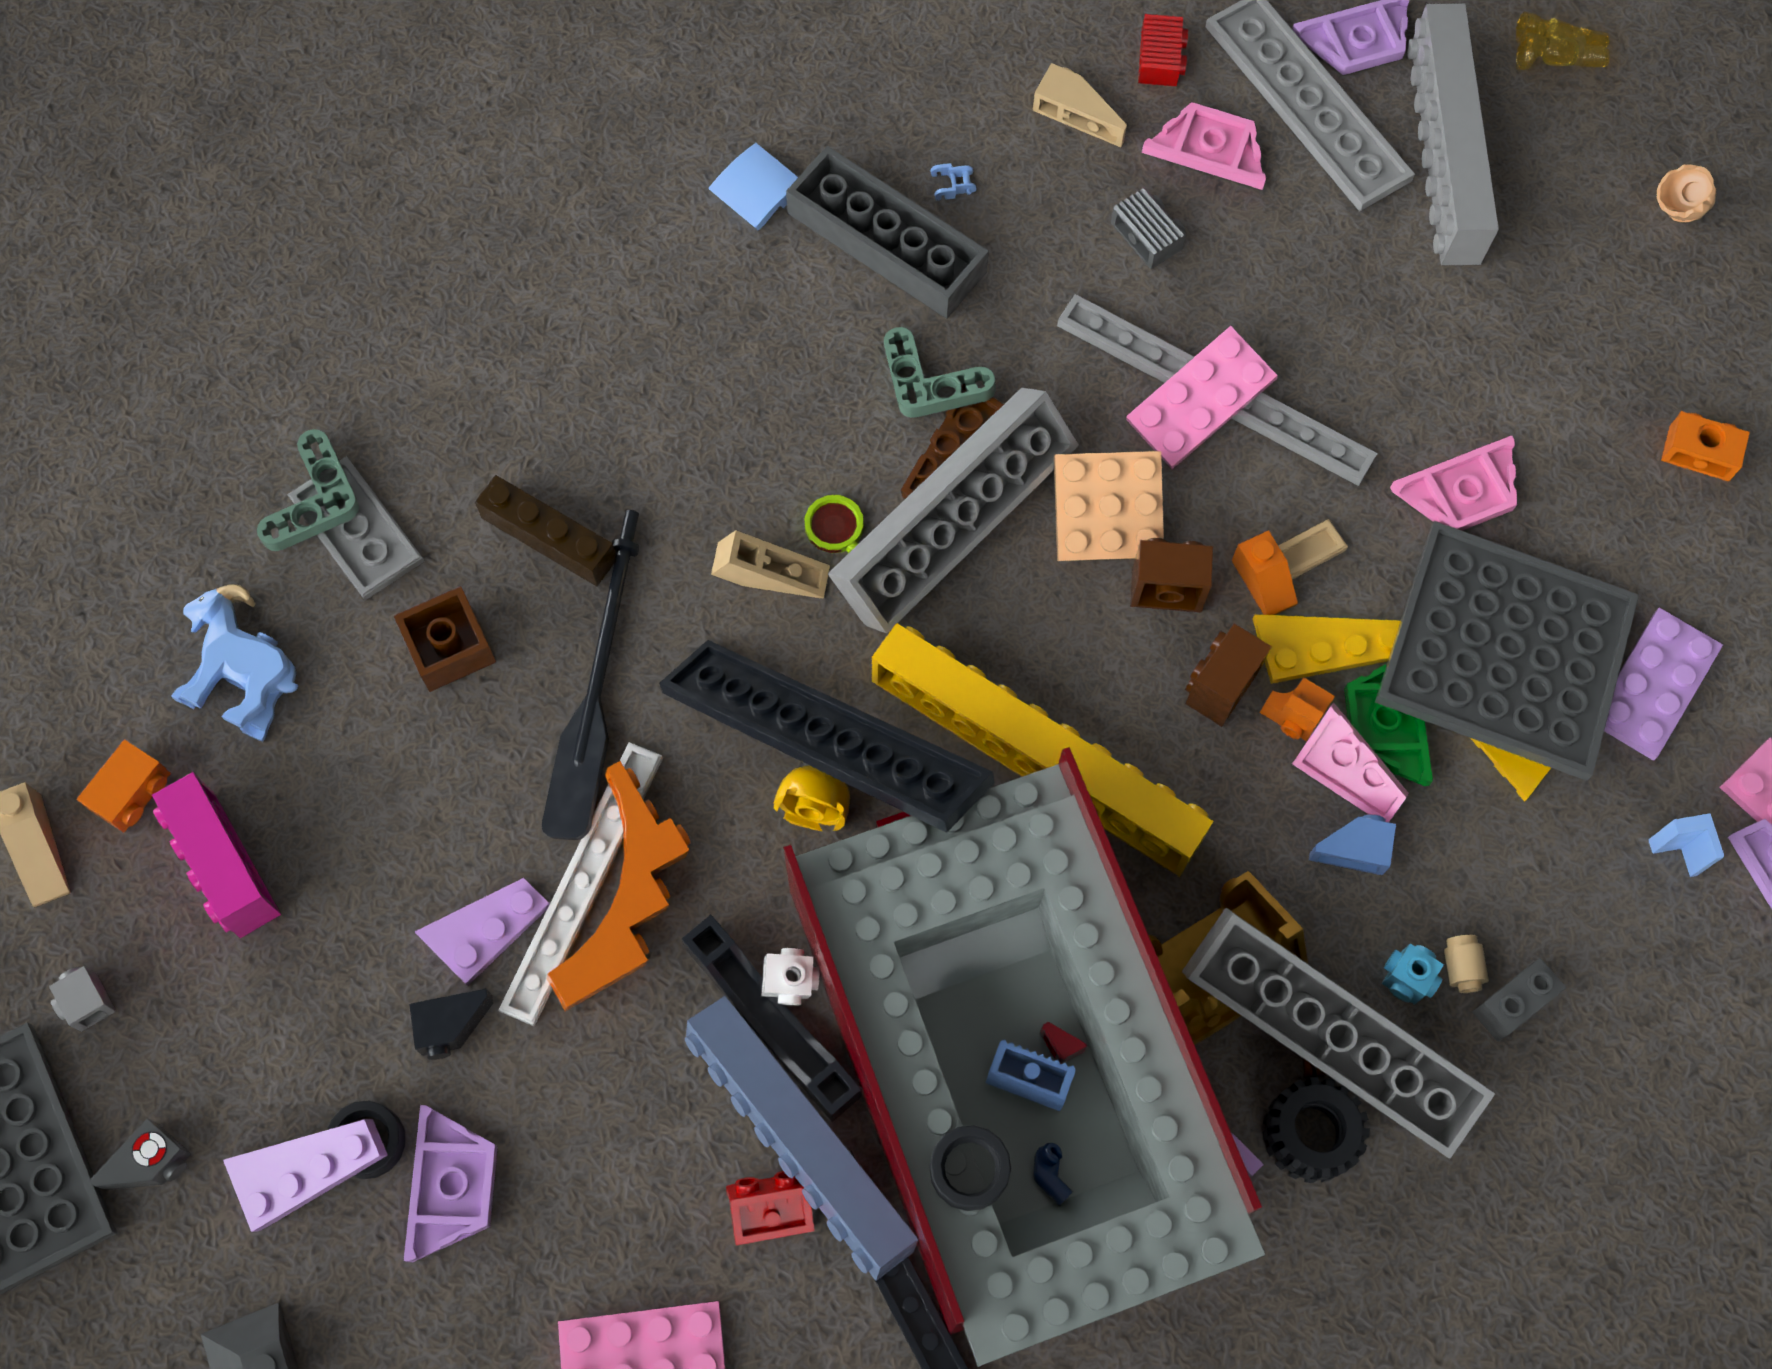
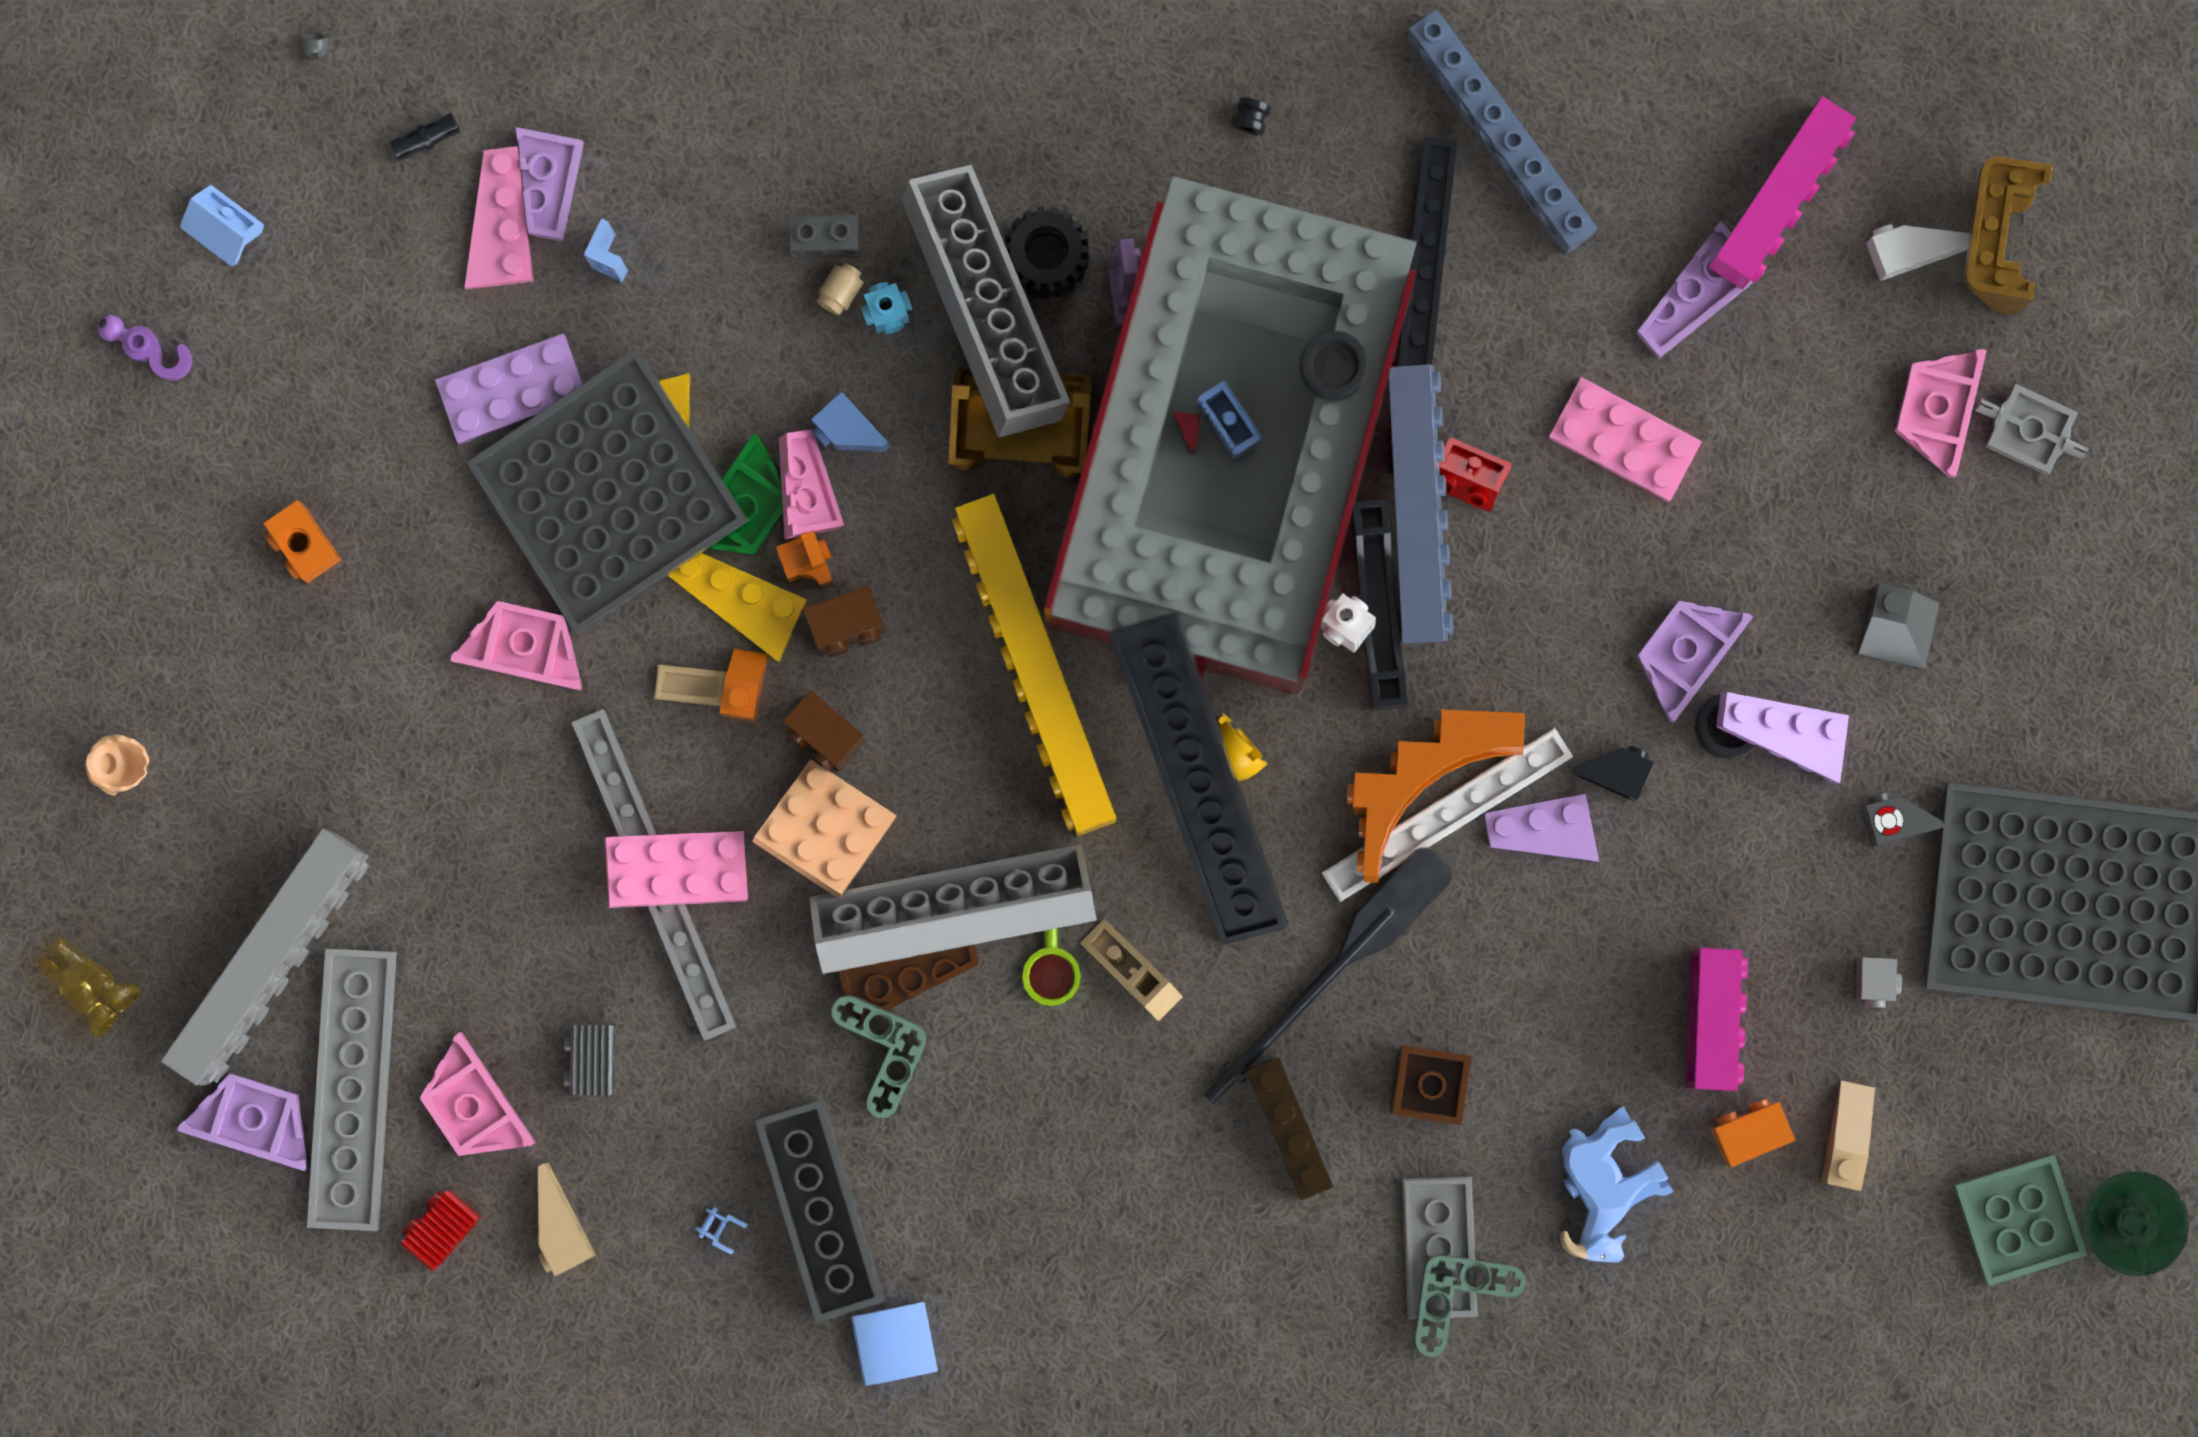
camera: 145 degrees left, 15 degrees up
(1047, 1171) = (1264, 351): dark blue arm -> none

